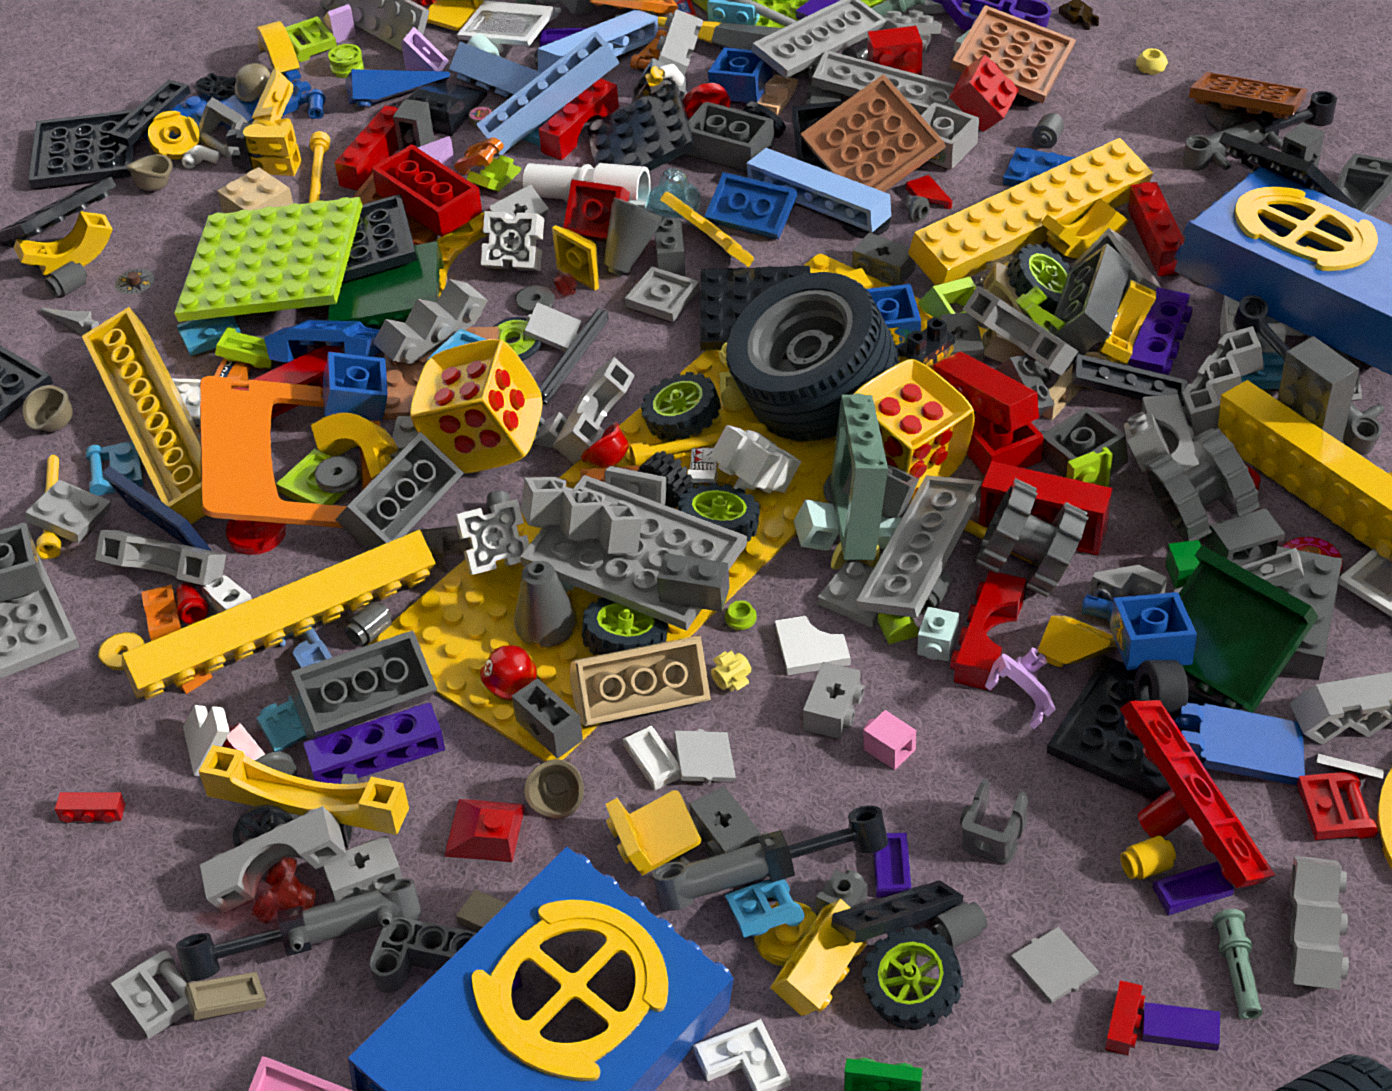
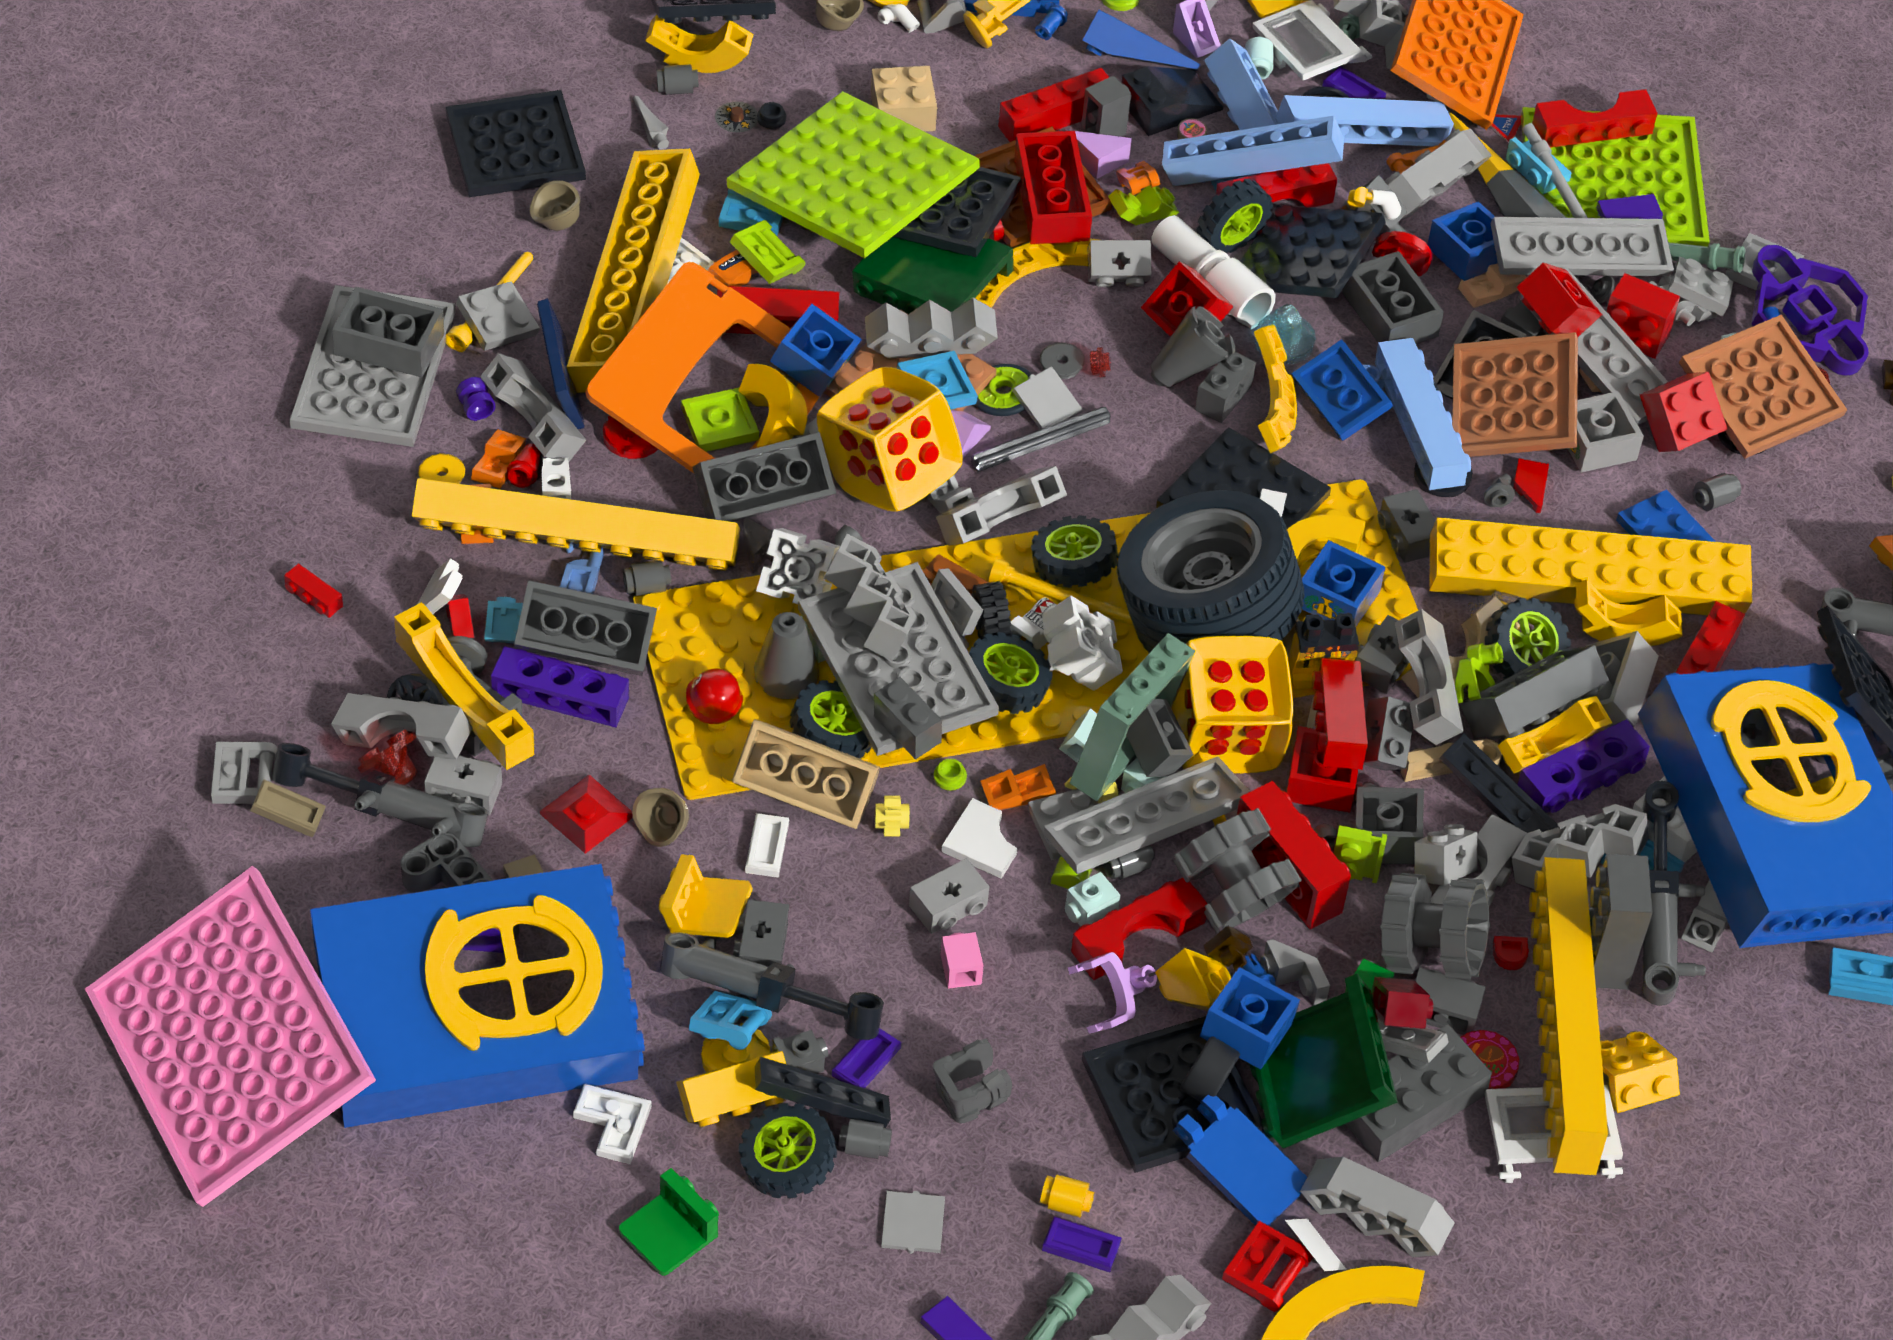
camera: 30 degrees right, 5 degrees up
(105, 580) = (475, 398): none -> dark purple wheel
(122, 458) = (573, 304): dark azure plate -> none
(163, 264) = (771, 115): none -> black plate
(265, 147) = (956, 48): yellow hips -> none
(293, 341) = (840, 281): blue plate -> none
(319, 144) = (1014, 71): yellow piece -> none
(333, 483) = (738, 414): dark grey piece -> none
(512, 241) = (1083, 290): white brick -> none
(547, 718) = (703, 754): dark grey brick -> none
(573, 137) = (1235, 216): none -> black wheel
(576, 256) = (1134, 341): yellow slope -> none
(608, 449) = (974, 552): red helmet -> none
(662, 294) = (1176, 429): light grey plate -> none
(704, 756) = (806, 871): piece -> none
(758, 109) = (1446, 305): black wheel -> none
(800, 593) = (1012, 790): none -> orange slope
(851, 62) = (1558, 300): none -> red brick
(939, 297) = (1429, 598): lime tile -> none
(1069, 600) = (1229, 947): none -> dark brown tile
(1125, 1018) = (920, 1295): red piece -> none
(1192, 796) = (1140, 1169): red plate -> none
(1245, 547) = (1401, 1002): none -> dark red brick

